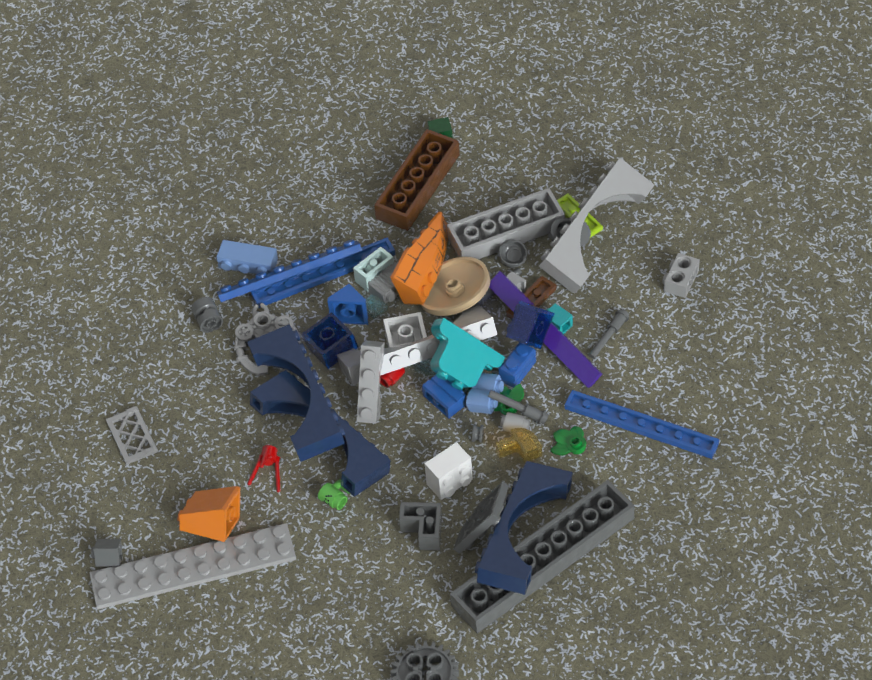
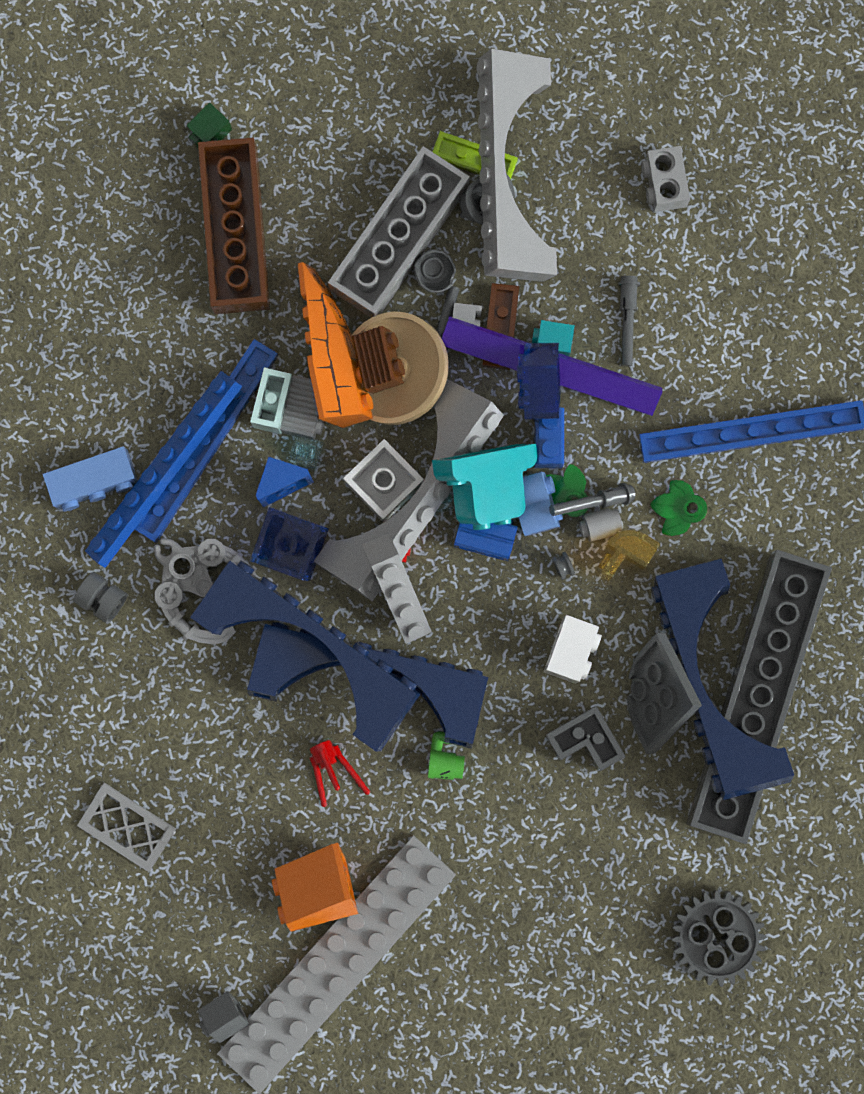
camera: 35 degrees left, 30 degrees up
(446, 273) = (378, 359): none -> reddish brown brick

